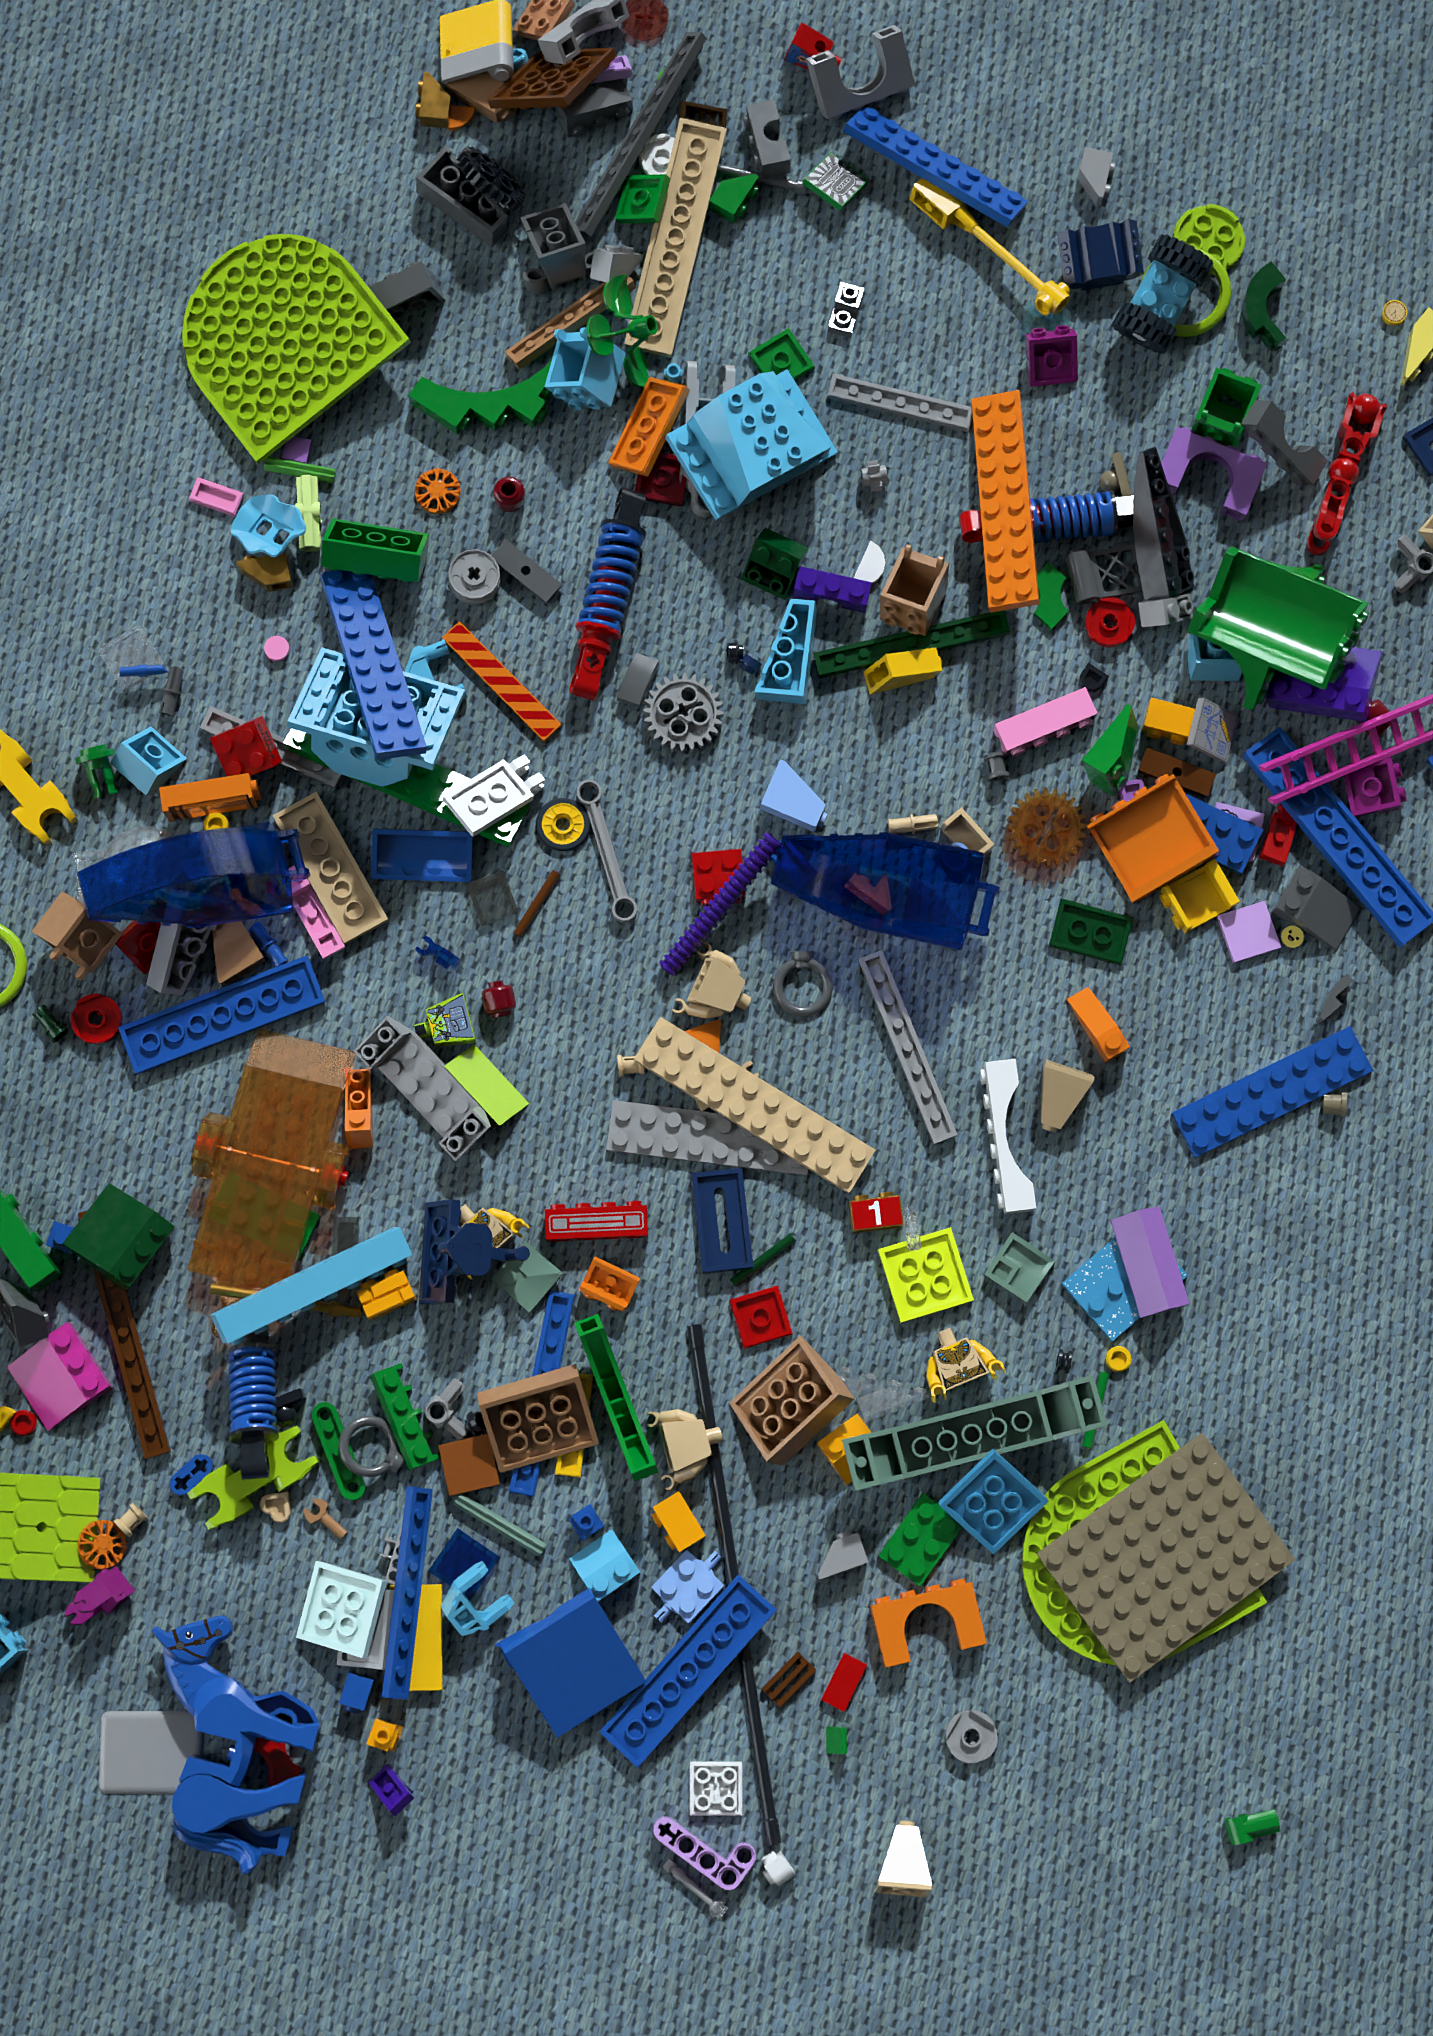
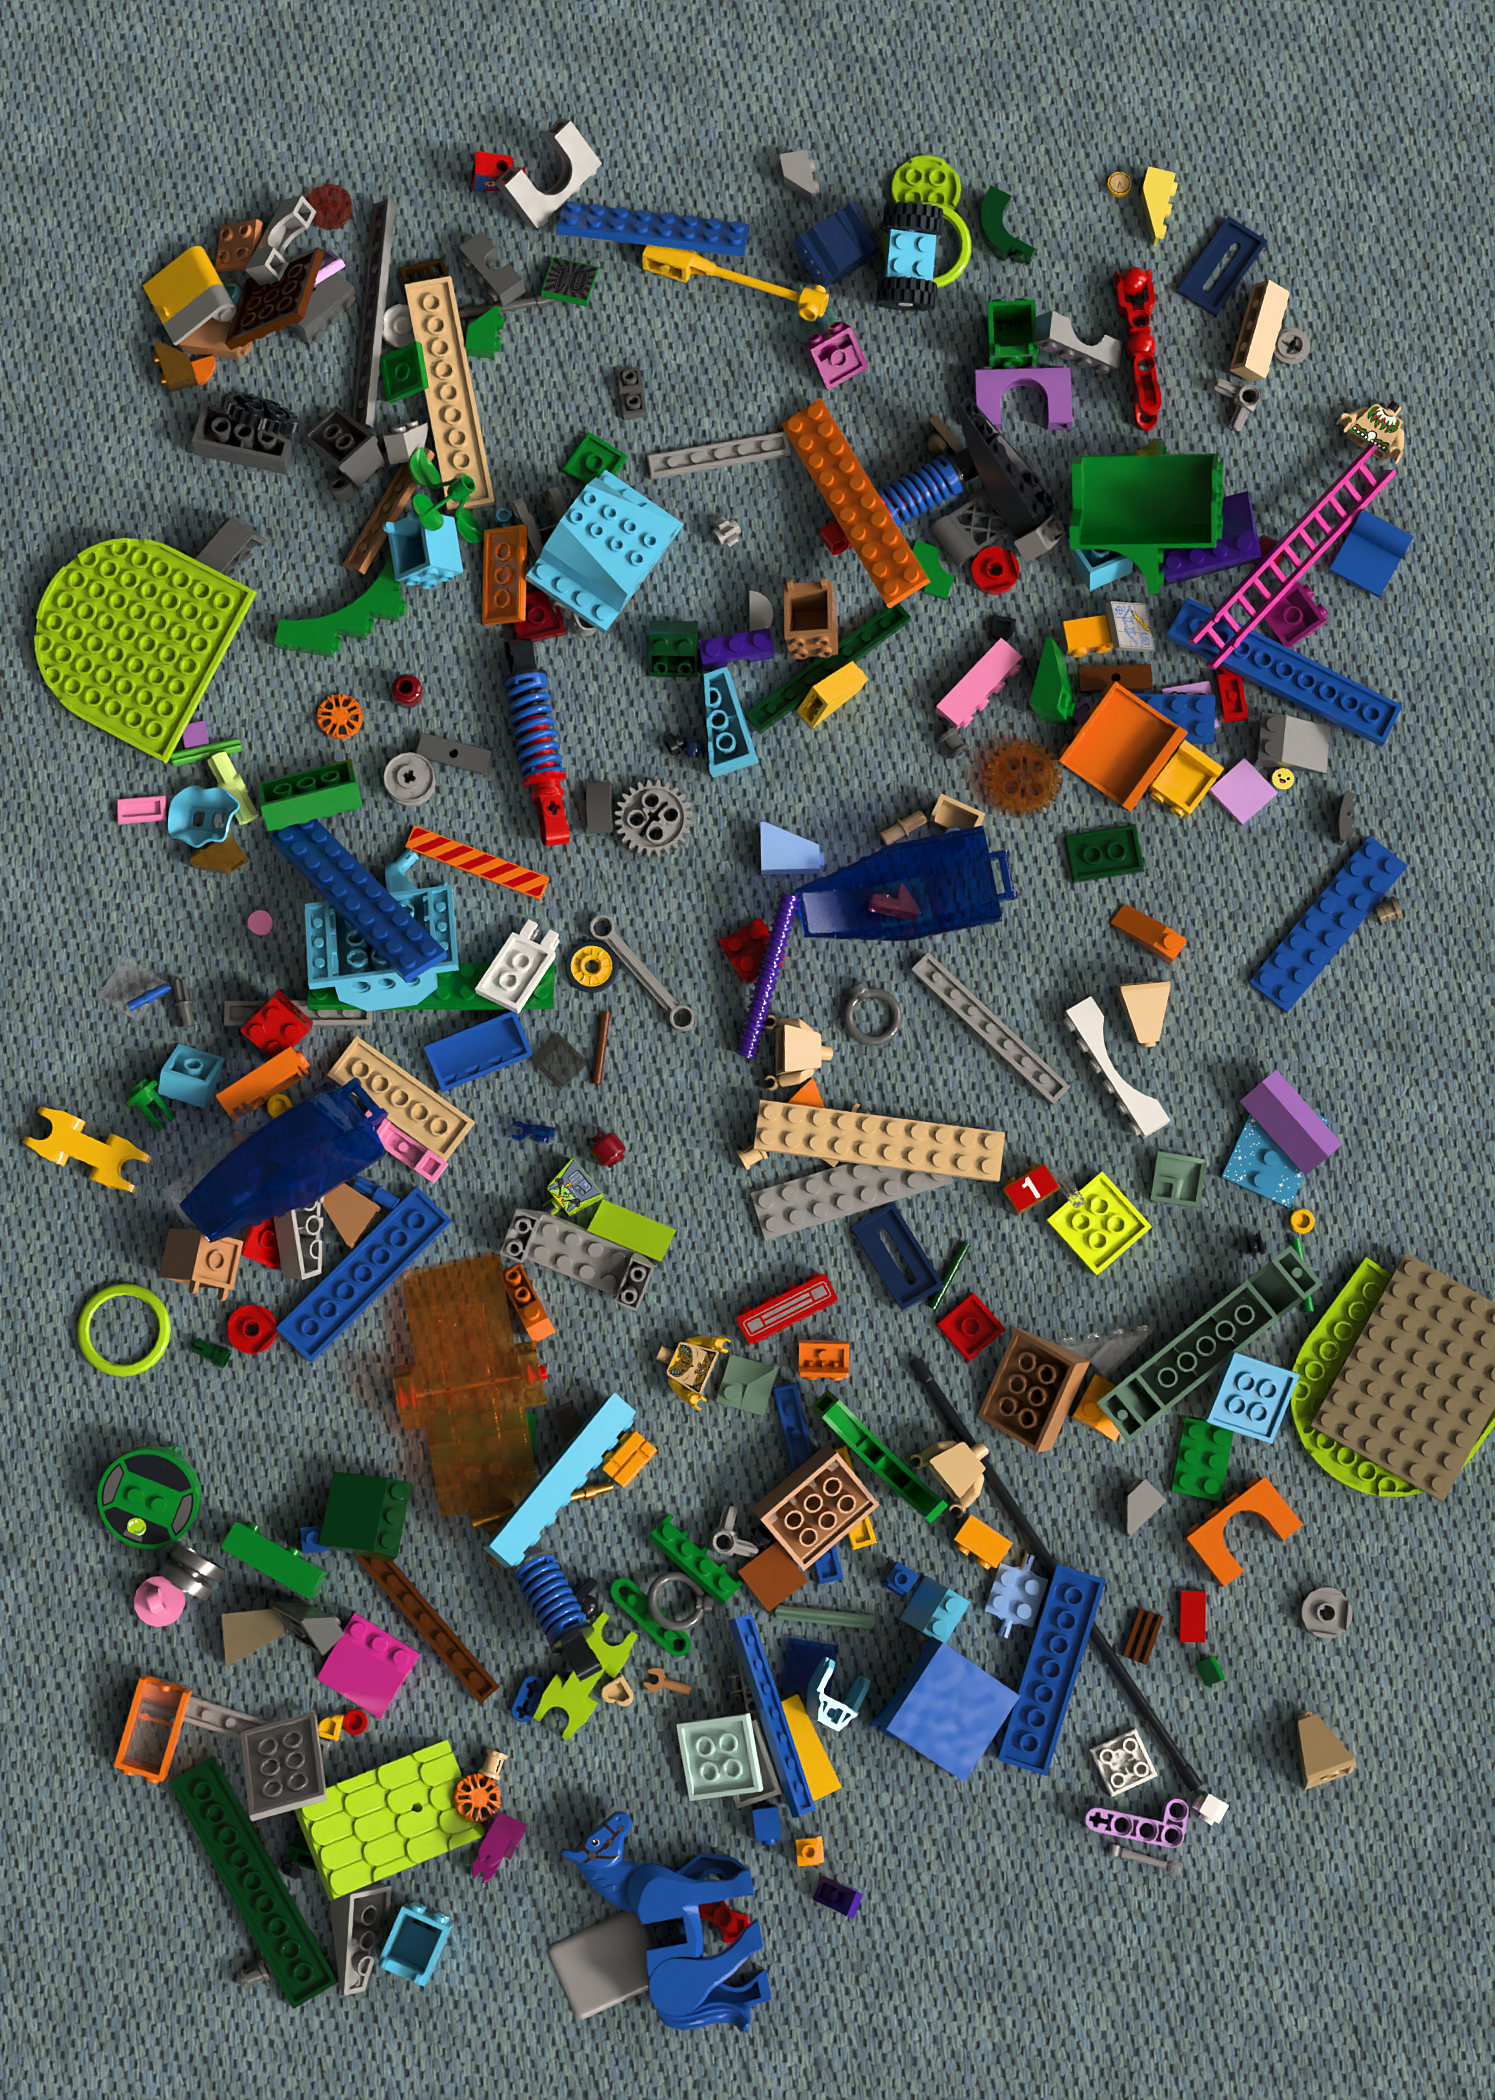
camera: 20 degrees left, 0 degrees up
(455, 1250) = (672, 1391): dark blue plate -> none
(958, 1364) = (1164, 1289): torso -> none

